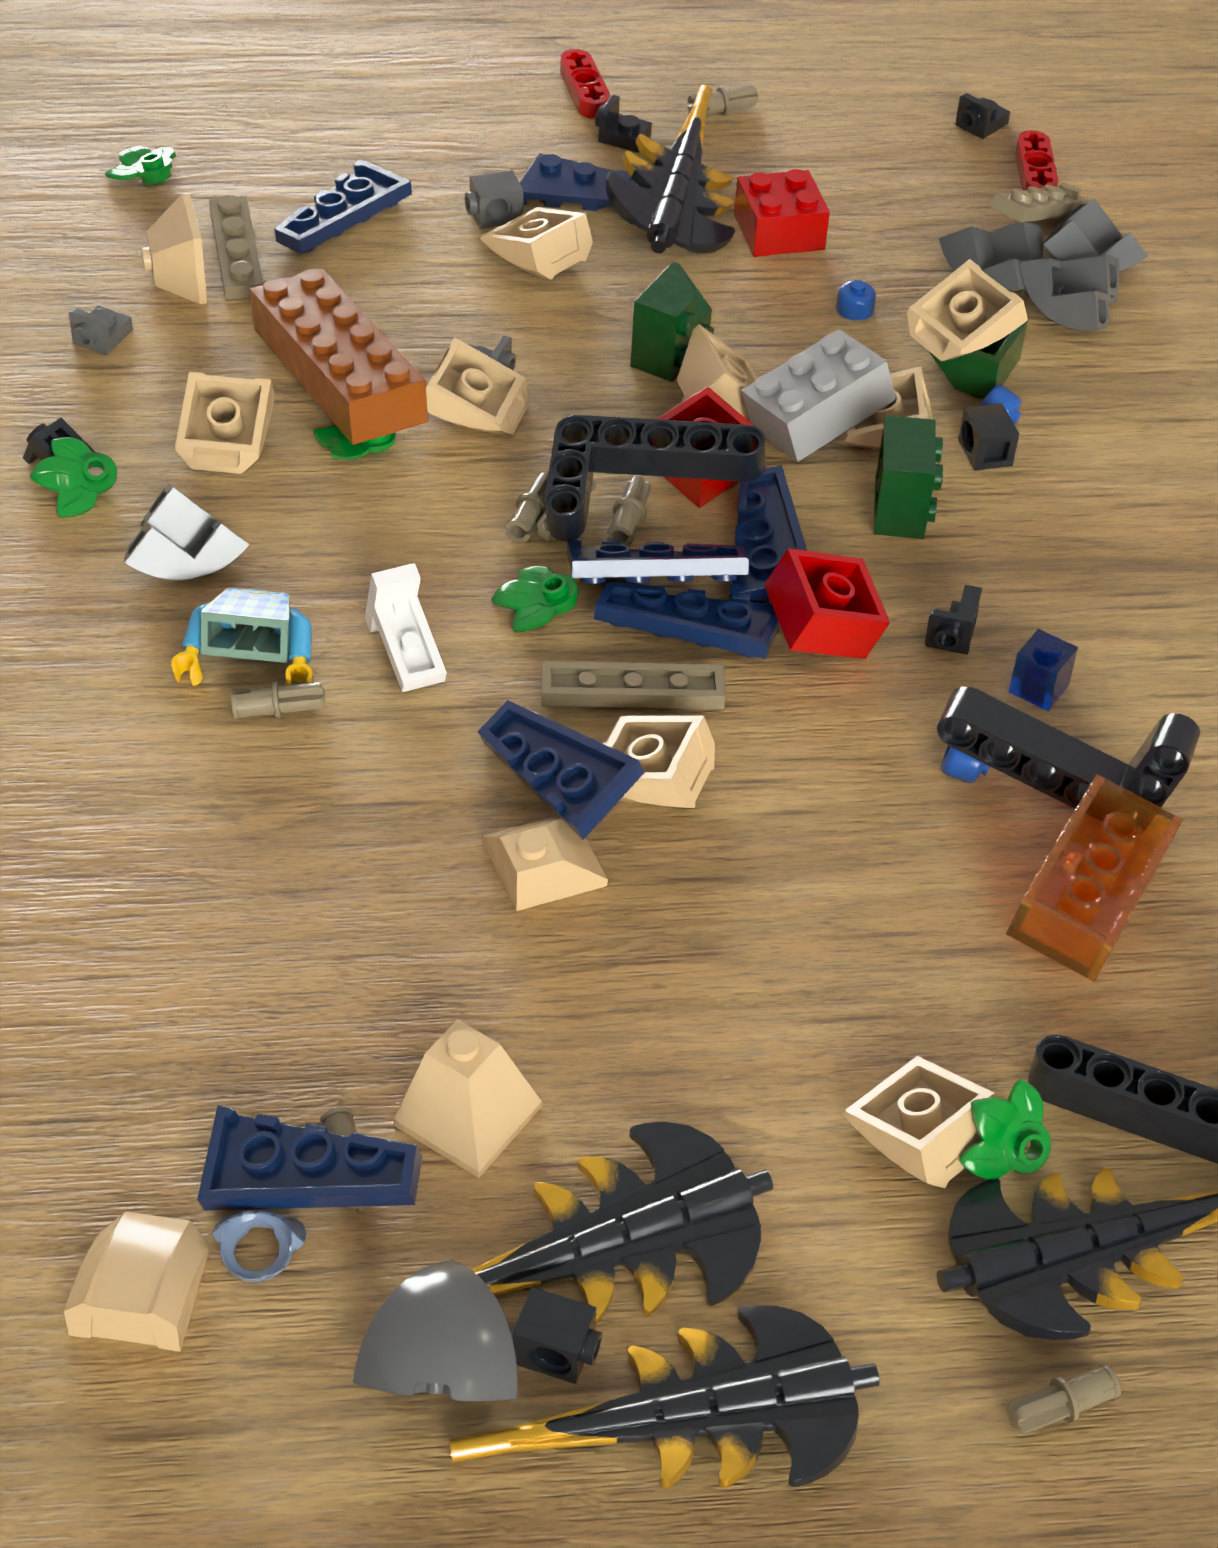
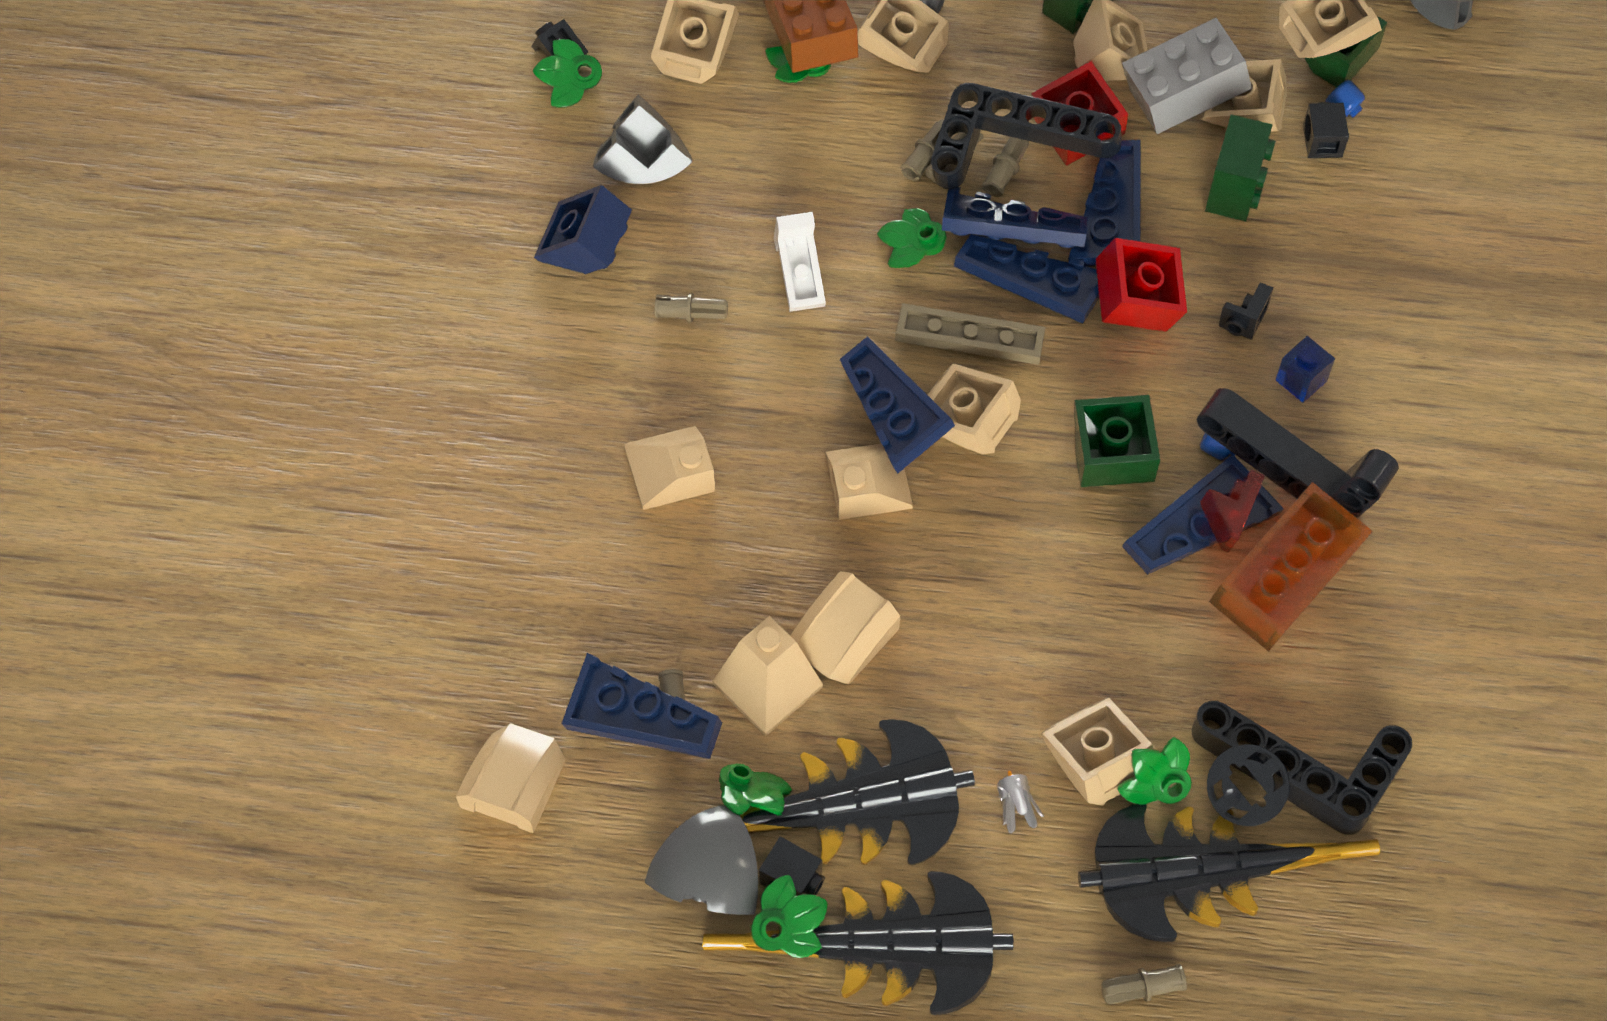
camera: 15 degrees right, 15 degrees up
(125, 634) = (584, 231): none -> dark blue slope
(233, 1227) = (621, 757): sand blue piece -> none
(247, 627) = (680, 241): torso -> none
(288, 878) = (670, 467): none -> tan slope
(467, 1241) = (747, 788): none -> green plate
(560, 1024) = (845, 628): none -> tan slope
(576, 1389) = (794, 916): none -> green plate
(827, 1186) = (1015, 793): none -> flat silver piece
(844, 770) = (1115, 441): none -> dark green slope
(970, 840) = (1183, 524): none -> dark blue wing
(1005, 823) = (1229, 513): none -> clear red slope
(1111, 1144) = (1263, 774): none -> black piece

